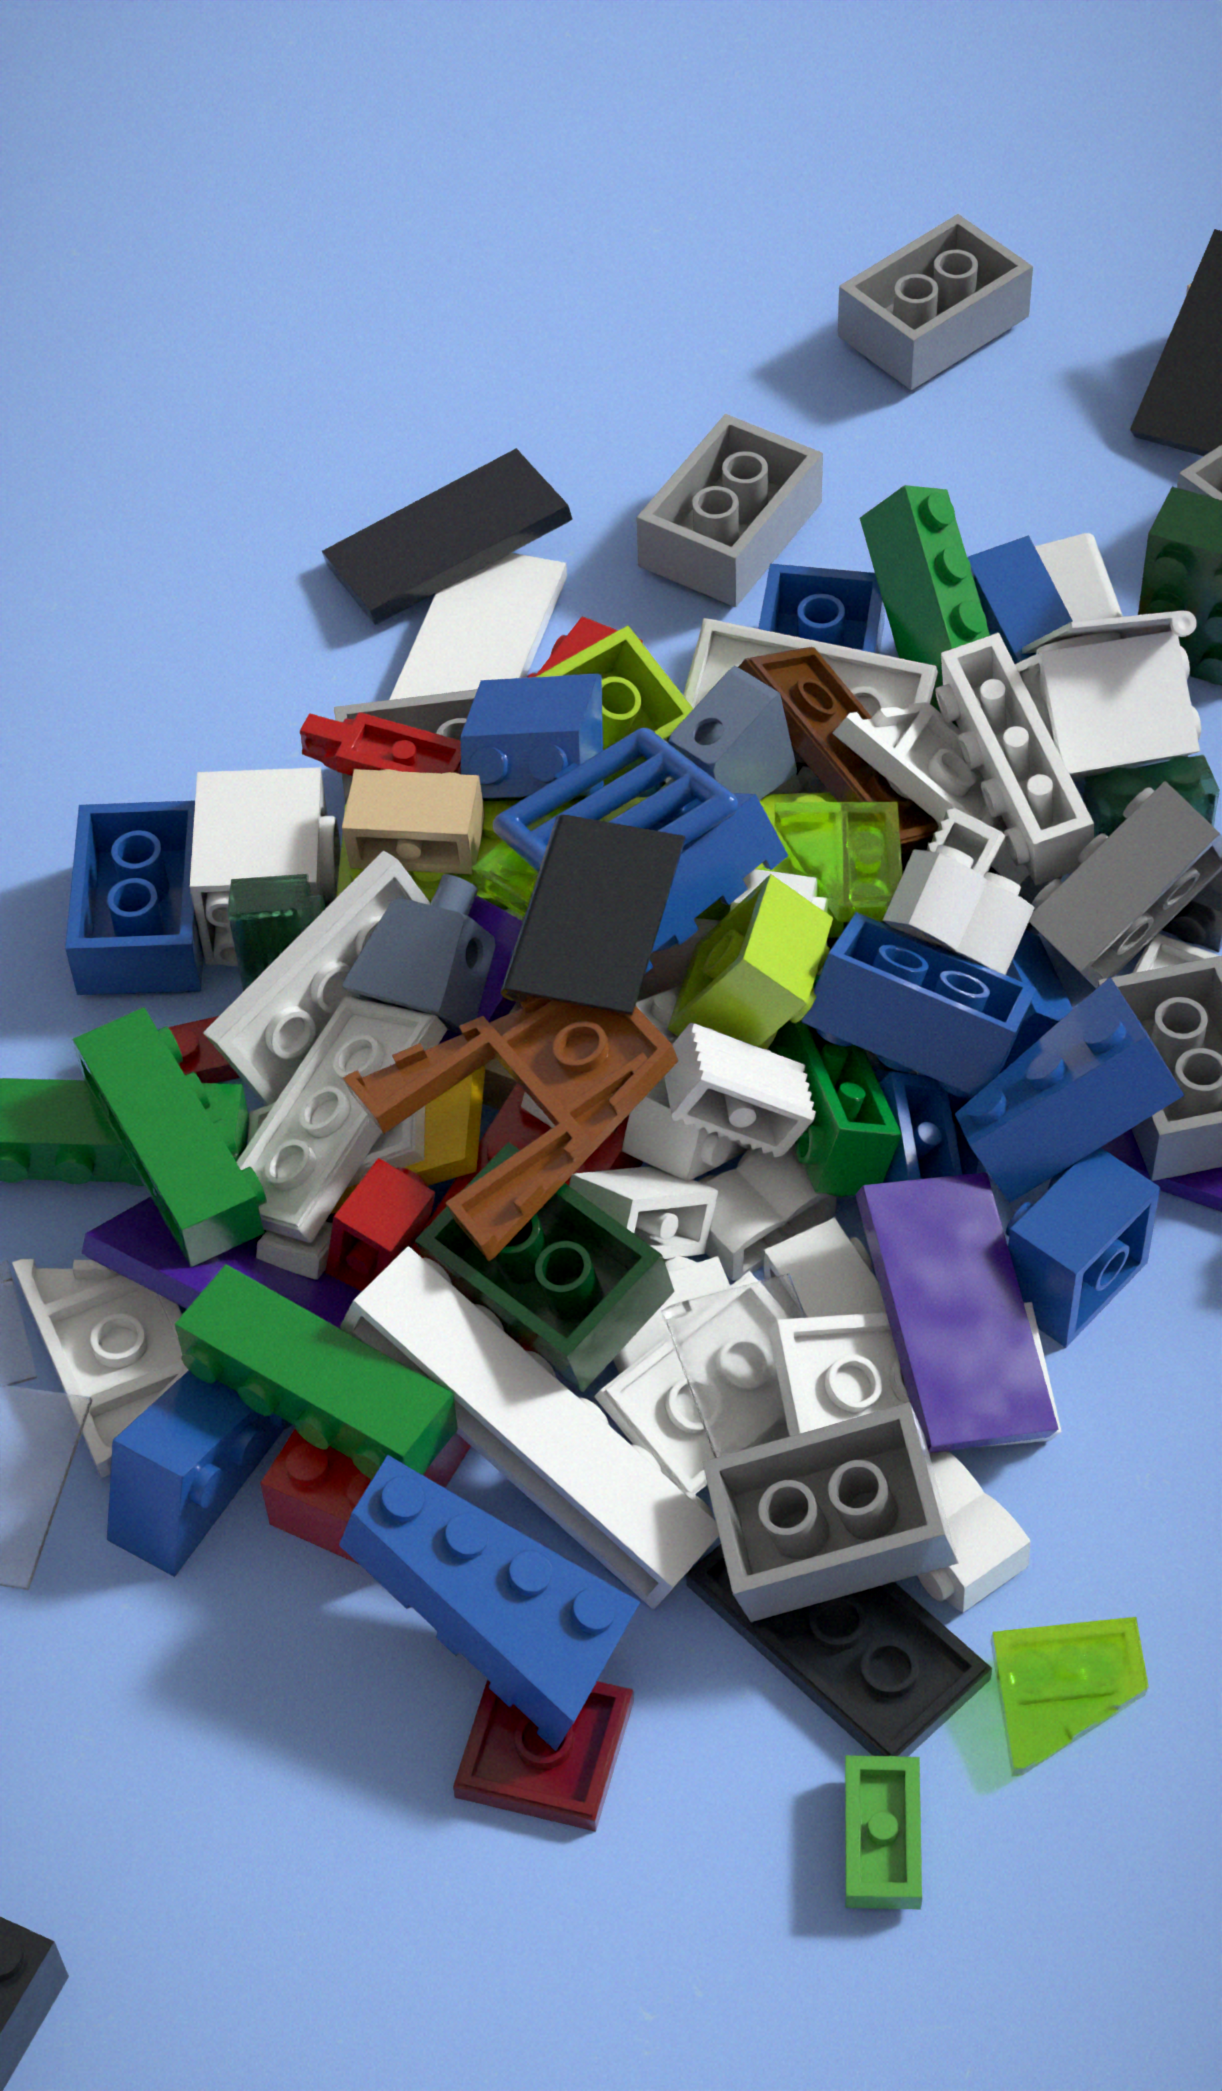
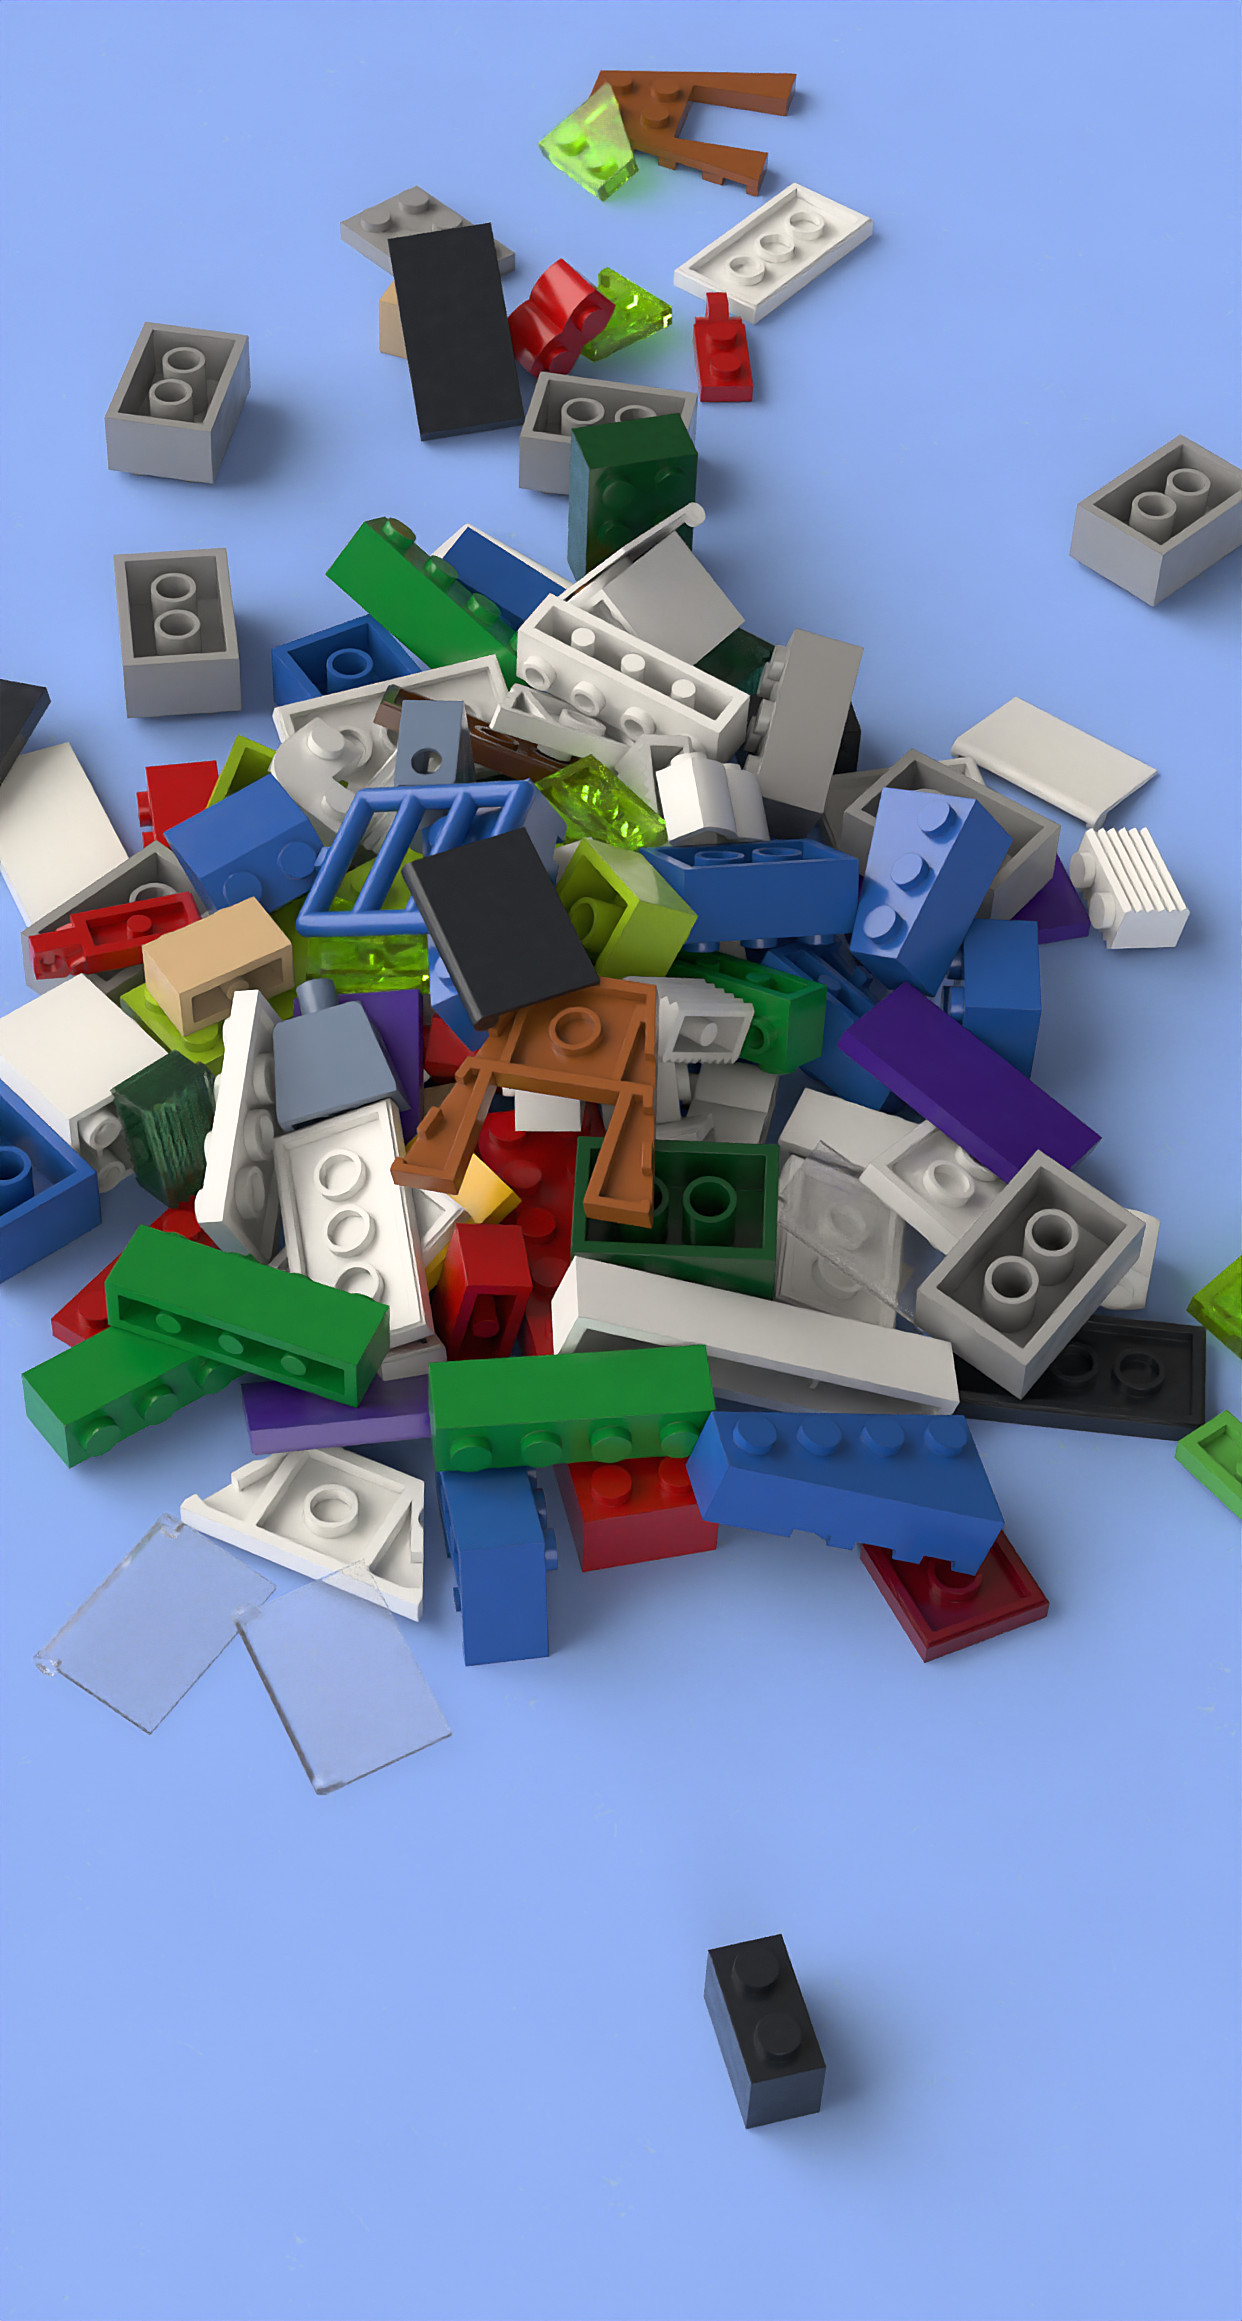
camera: 45 degrees left, 5 degrees down
(655, 689) = (310, 772): none -> white plate

